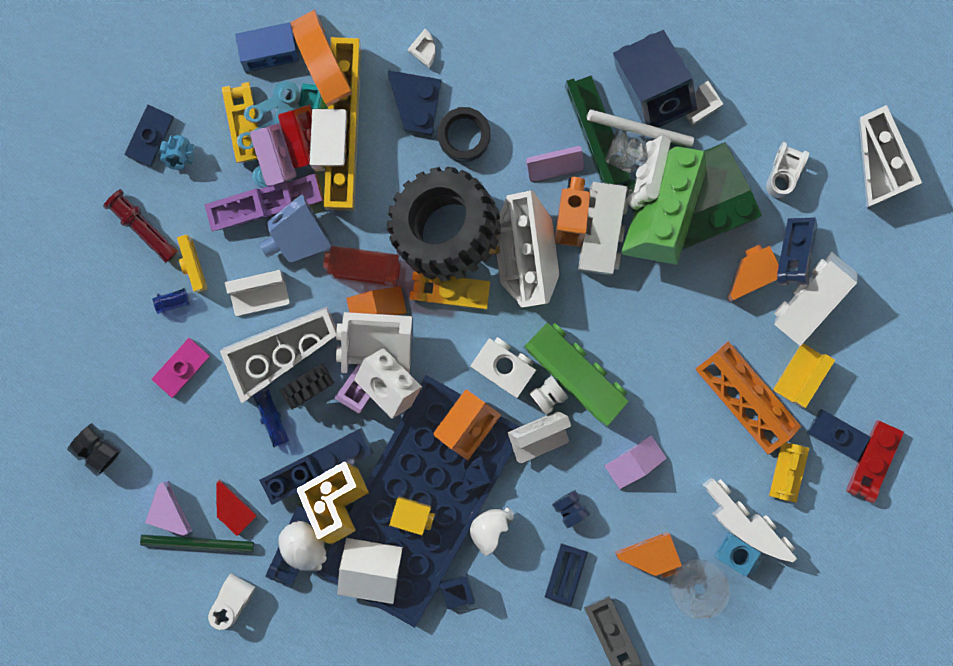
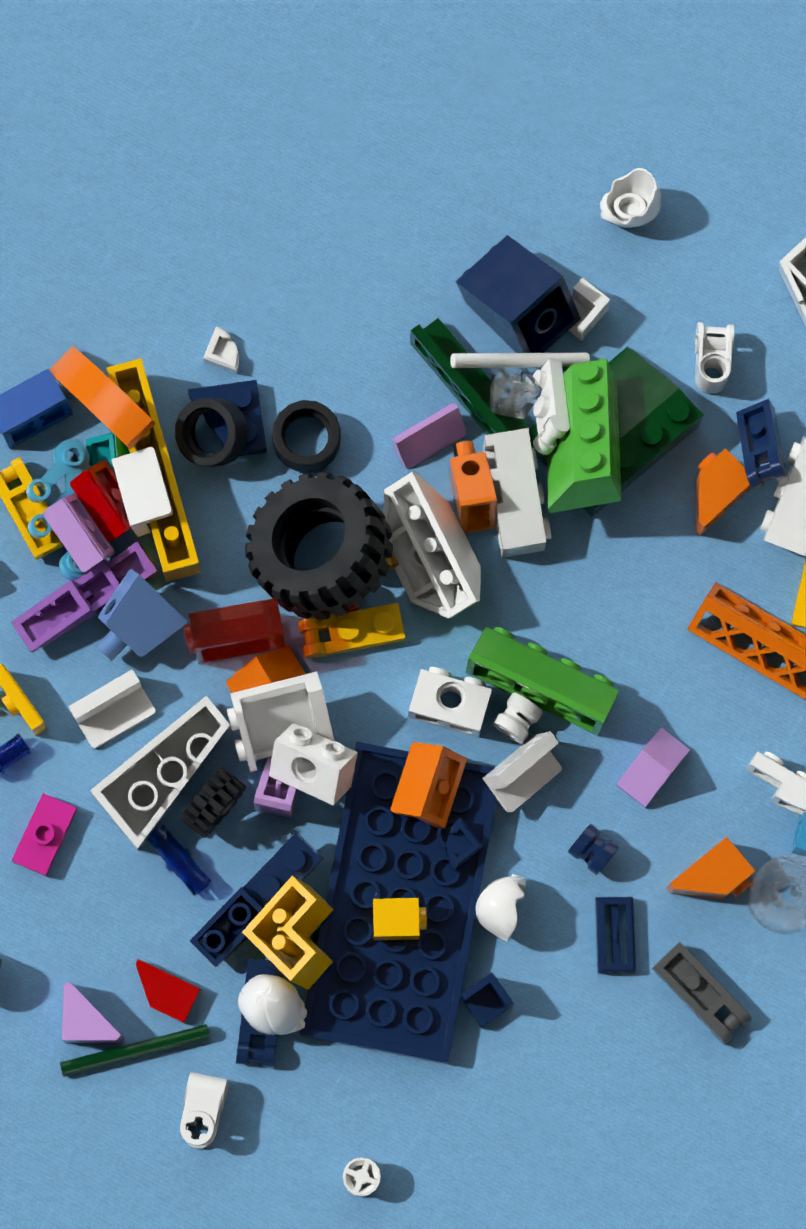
camera: 25 degrees left, 10 degrees down
(369, 570) = (367, 1008): white slope -> none
(375, 109) = (186, 438): none -> black tyre
(766, 31) = (632, 200): none -> white hair

